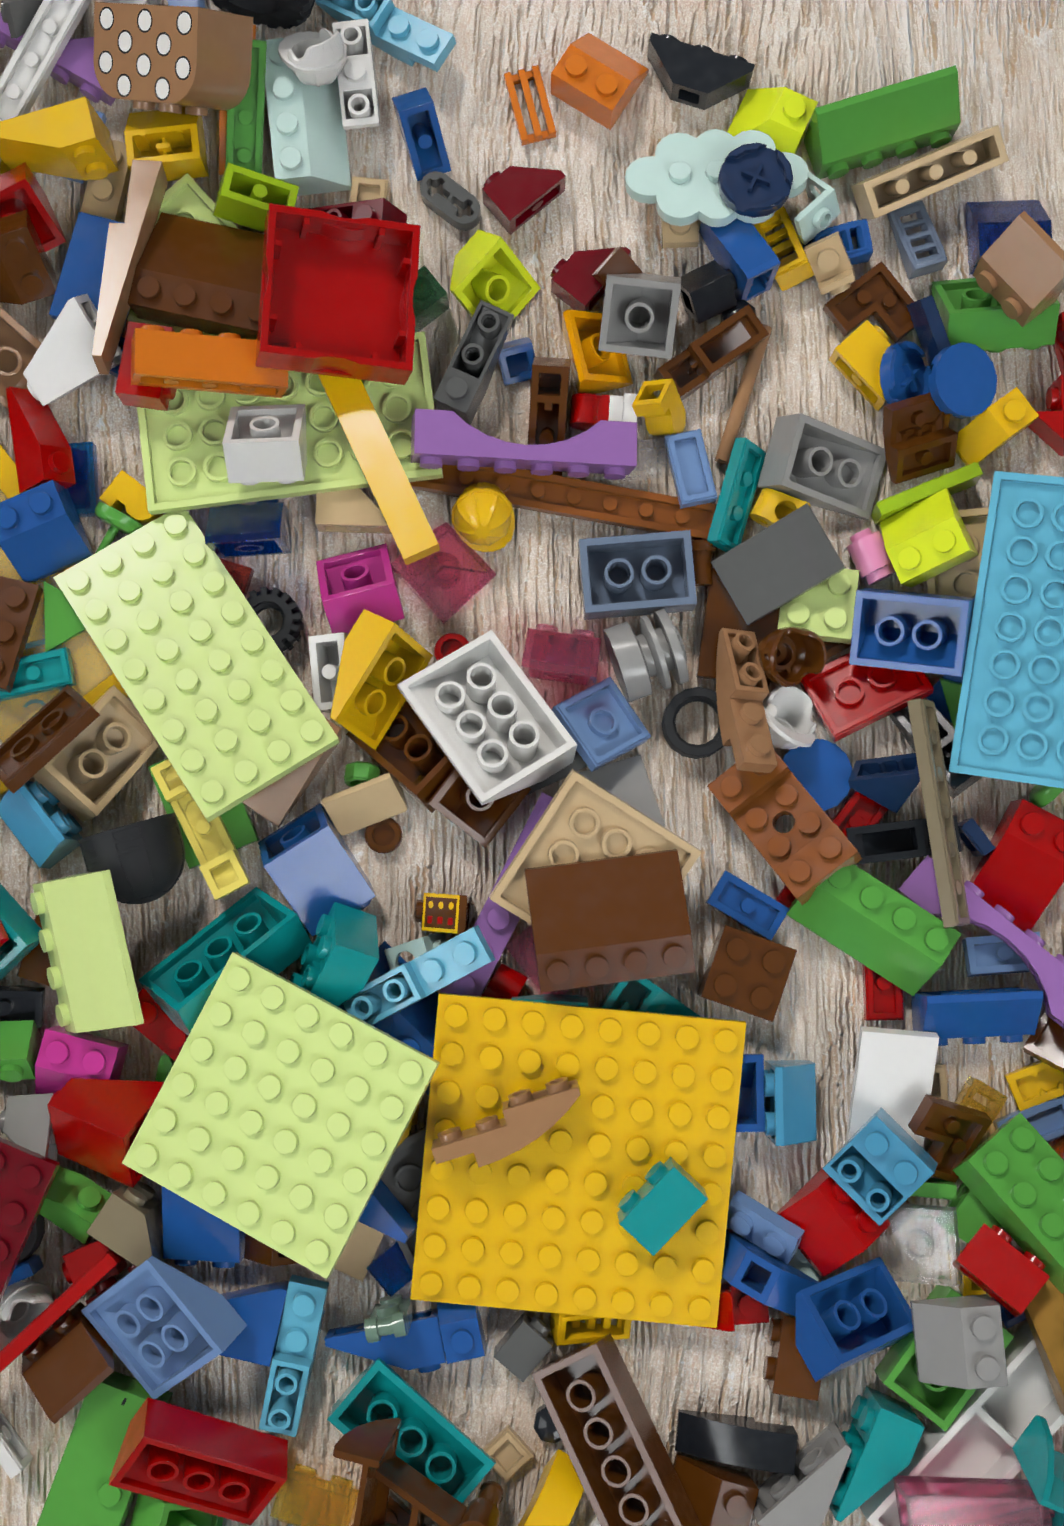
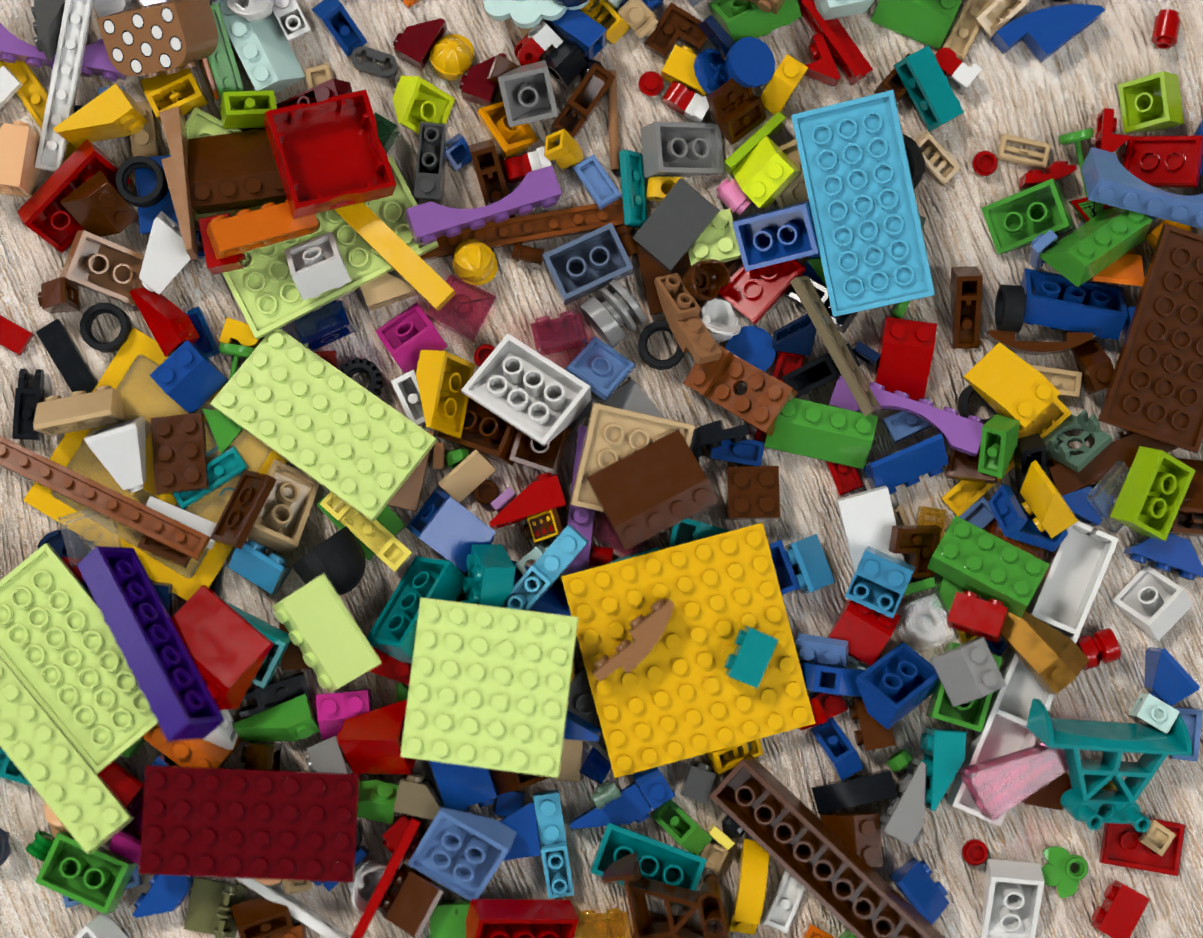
camera: 30 degrees left, 0 degrees up
(55, 226) = (127, 168): none -> black tyre
(254, 1275) = (509, 802): none -> blue tile
(337, 763) = (439, 458): none -> medium nougat tile
(402, 854) = (503, 499): none -> lavender tile
(445, 872) = (533, 500): none -> red slope
(479, 1402) = (682, 827): none -> bright green slope
(526, 1433) = (720, 837): none -> light yellow tile
(556, 230) = (452, 57): none -> yellow piece
(559, 532) = (527, 254): none -> reddish brown pin
(677, 251) = (535, 43): none -> leg
(725, 871) = (712, 435): none -> black slope
(734, 1373) = (837, 749): none -> blue slope
(813, 362) = (650, 84): none -> red plate
(813, 1421) = (899, 761): none -> bright green tile
(853, 405) = (686, 102): none -> leg

